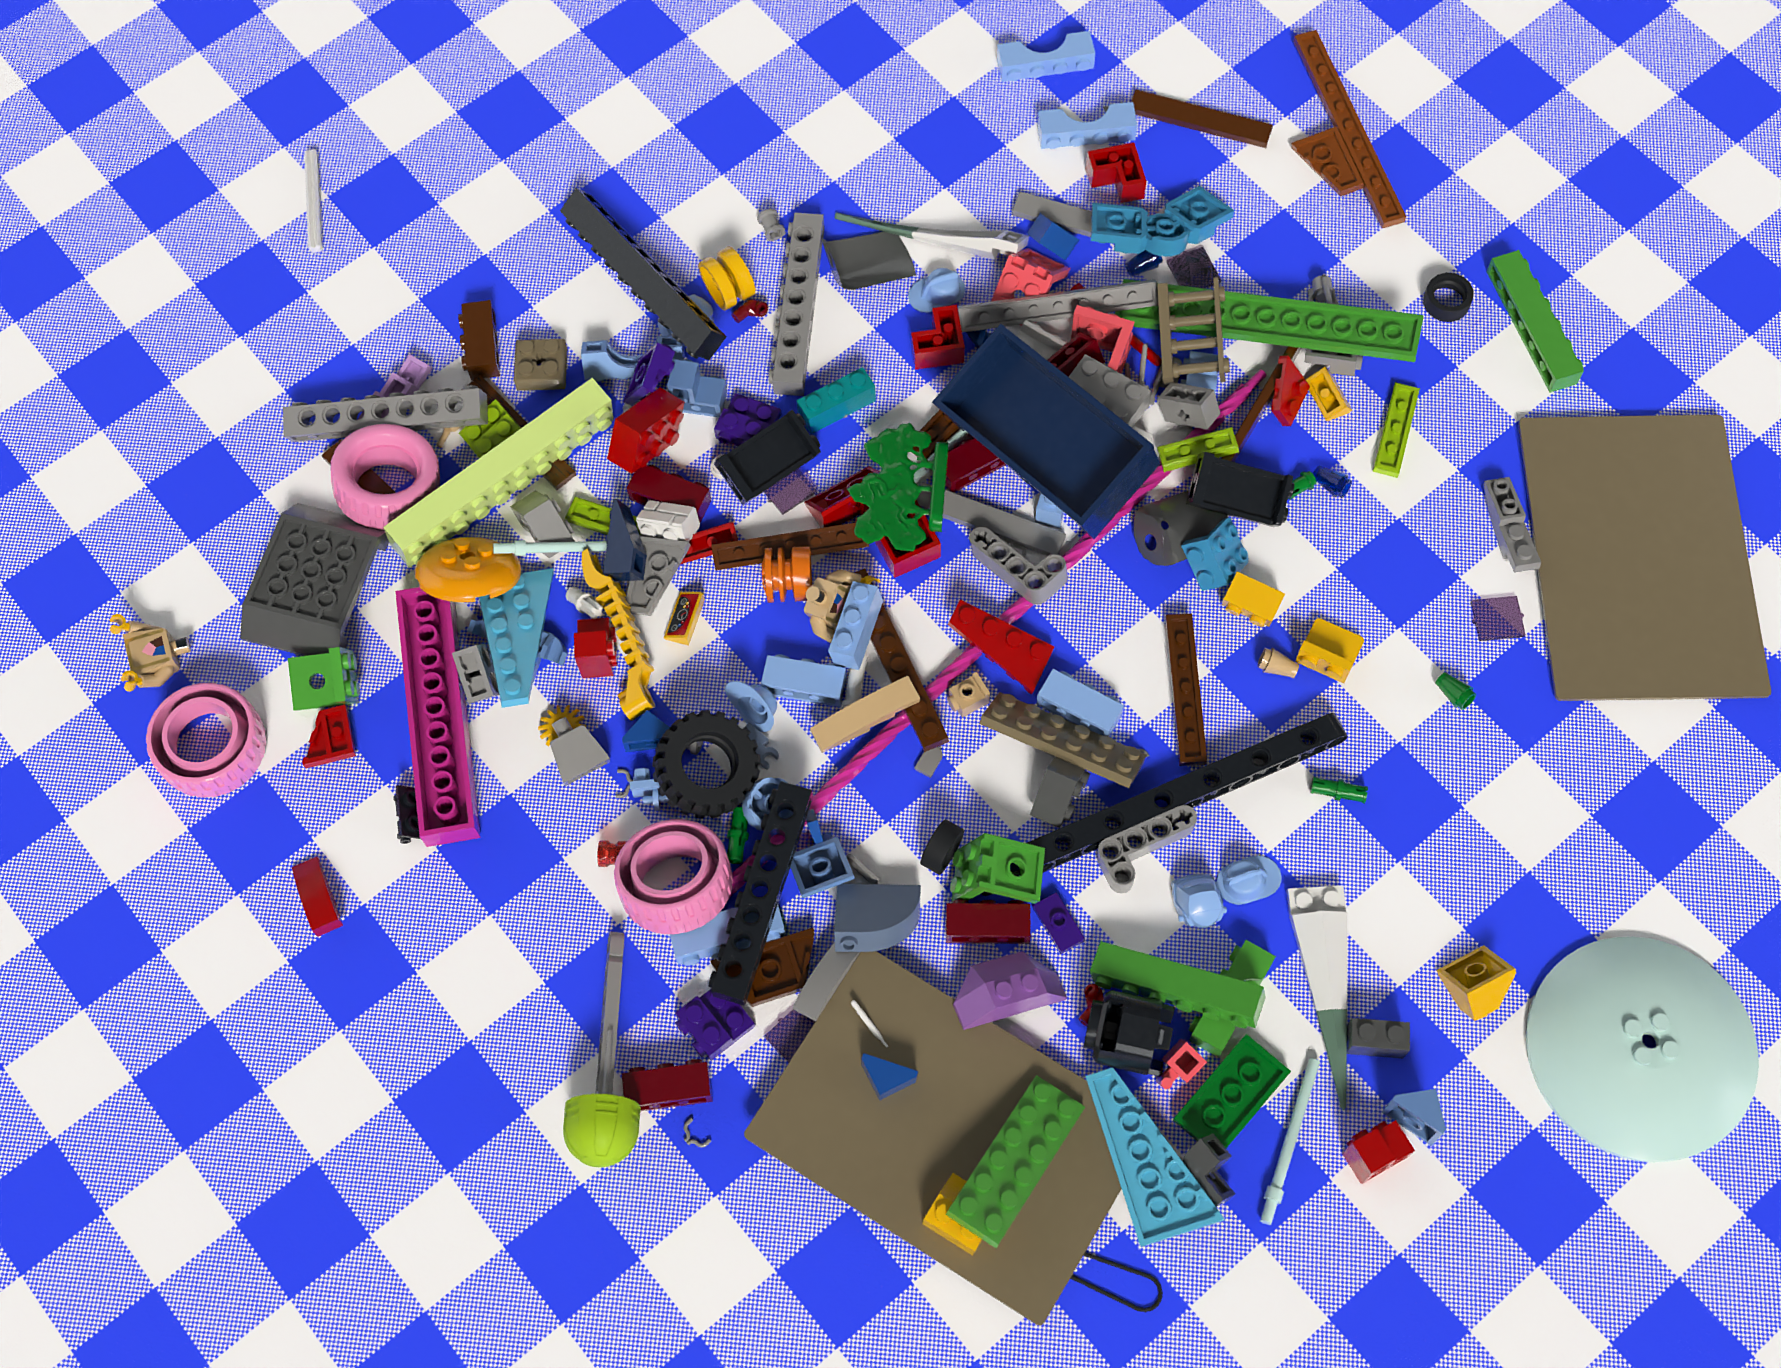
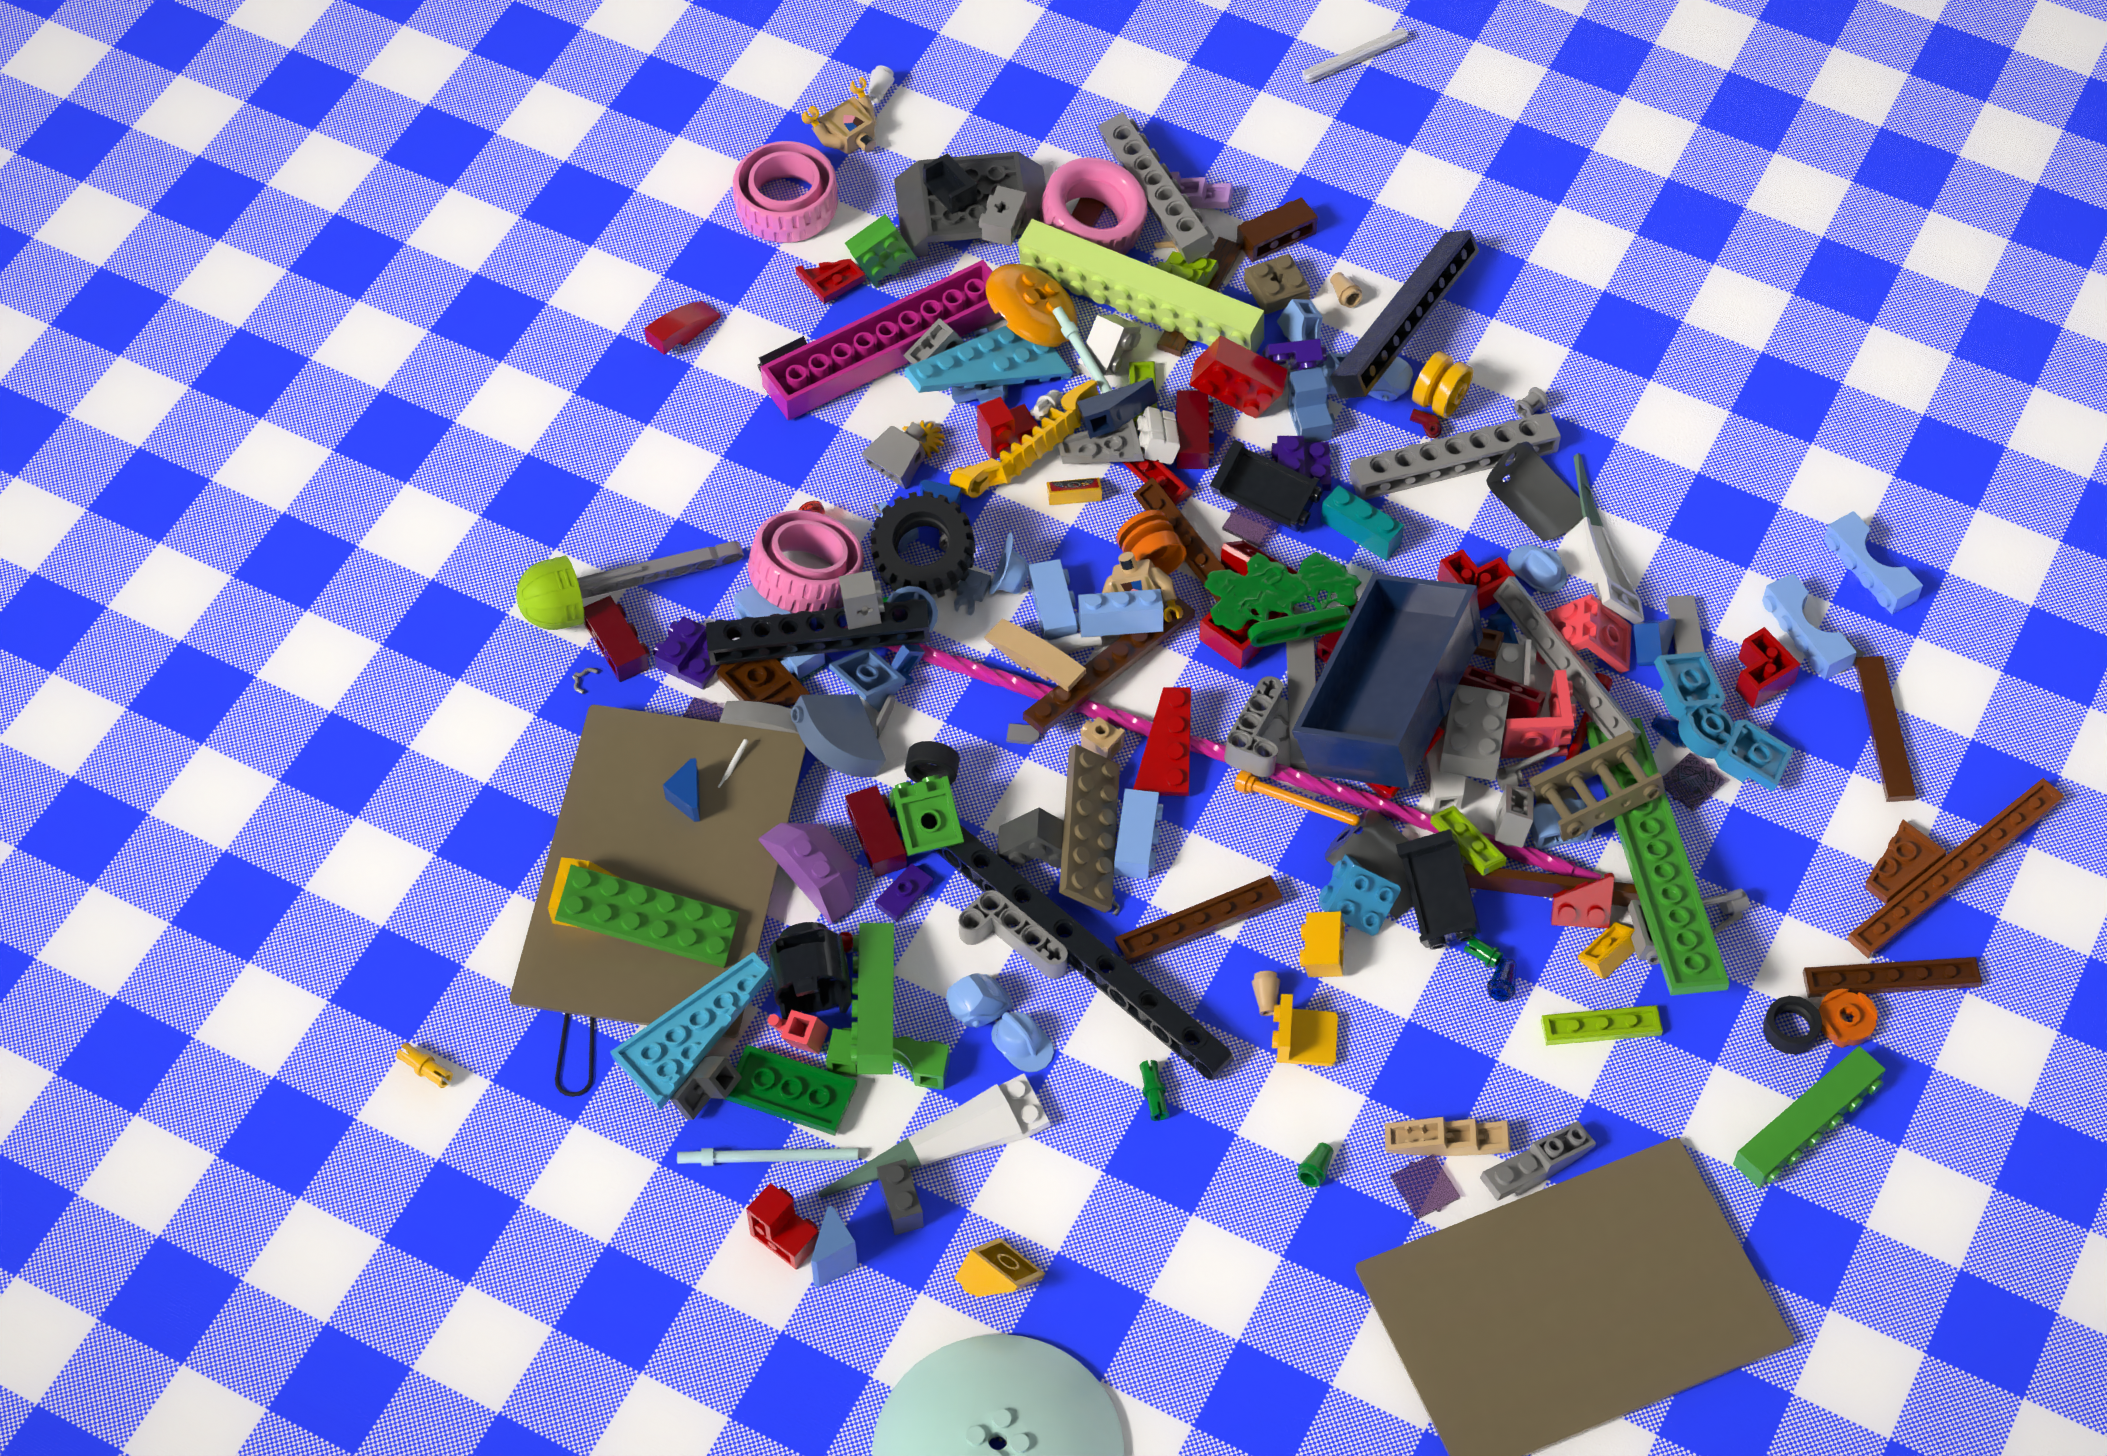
camera: 65 degrees right, 10 degrees down
(109, 603) = (880, 82): none -> white cone
(294, 584) = (950, 183): none -> black panel
(359, 551) = (1003, 215): none -> light grey brick
(576, 313) = (1347, 291): none -> tan cone
(769, 834) = (861, 599): none -> light grey brick
(1065, 594) = (1248, 783): none -> light orange piece
(1426, 214) = (1893, 976): none -> reddish brown tile
(1462, 249) = (1844, 1032): none -> orange plate
(1463, 582) = (1447, 1138): none -> tan slope

